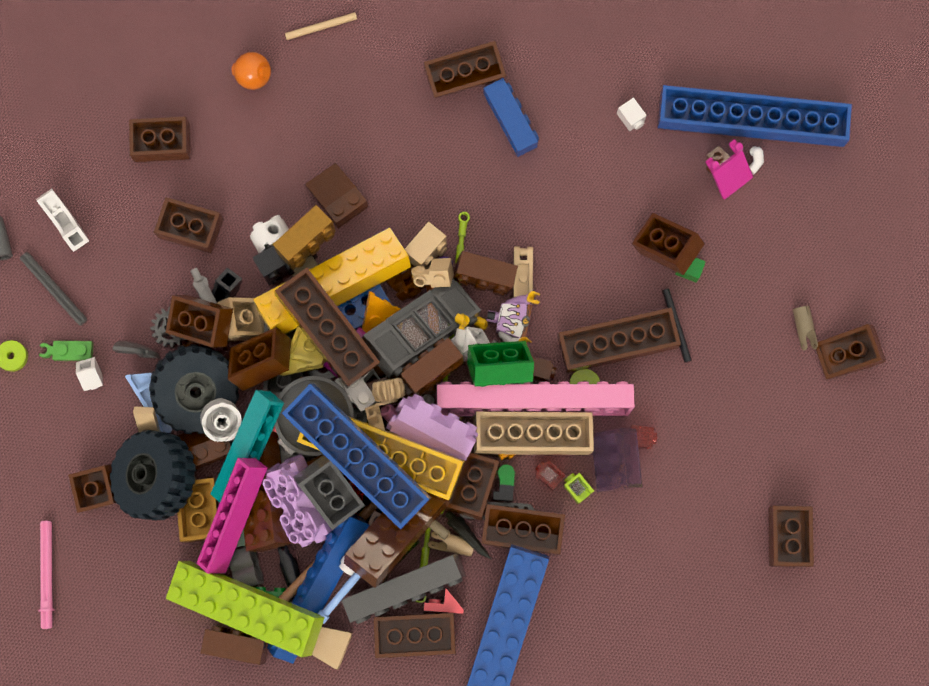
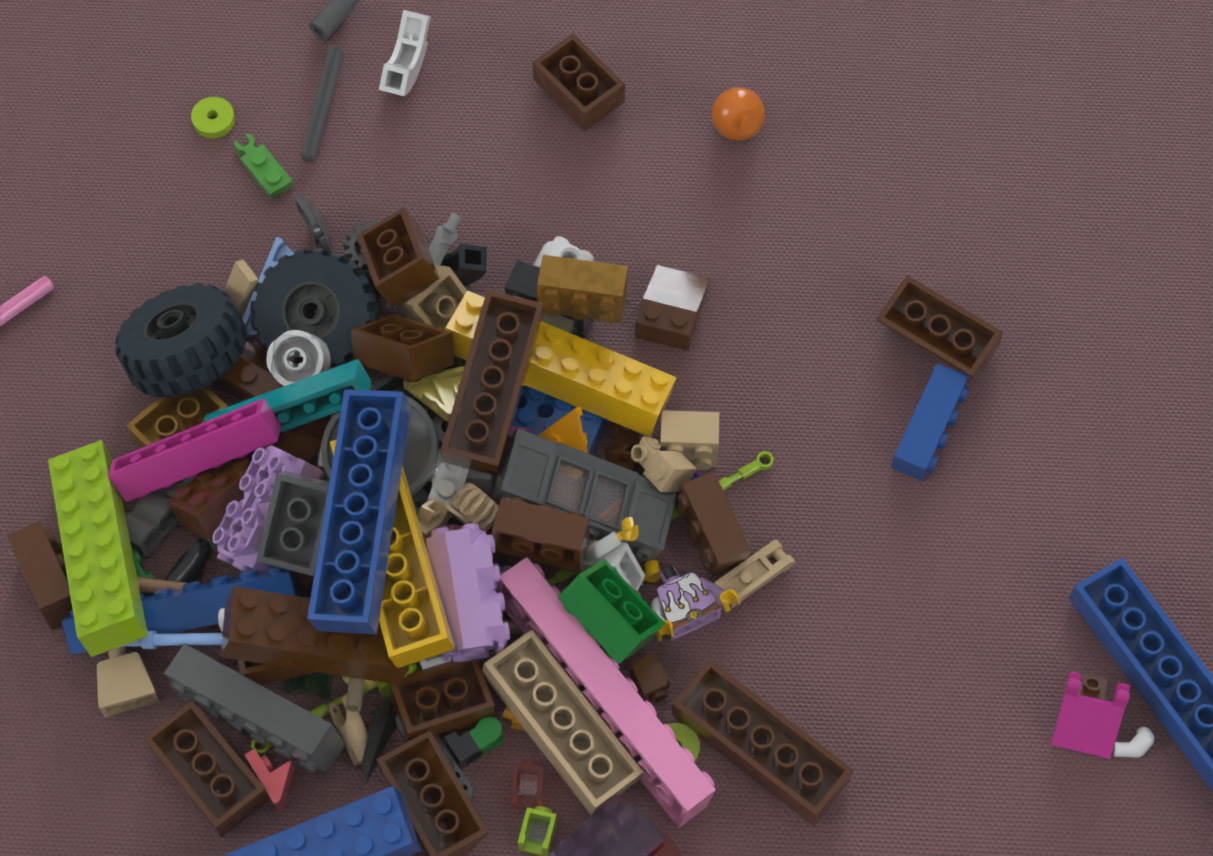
camera: 50 degrees right, 15 degrees down
(89, 374) = (251, 202): white brick -> none
(92, 488) = (118, 294): reddish brown brick -> none
(188, 225) = (504, 179): reddish brown brick -> none
(320, 26) = (856, 149): tan bar -> none
(632, 115) = (1057, 554): white brick -> none
(668, 243) = (930, 708): reddish brown brick -> none
(683, 347) = (841, 804): black bar -> none
(694, 271) = (926, 762): green brick -> none

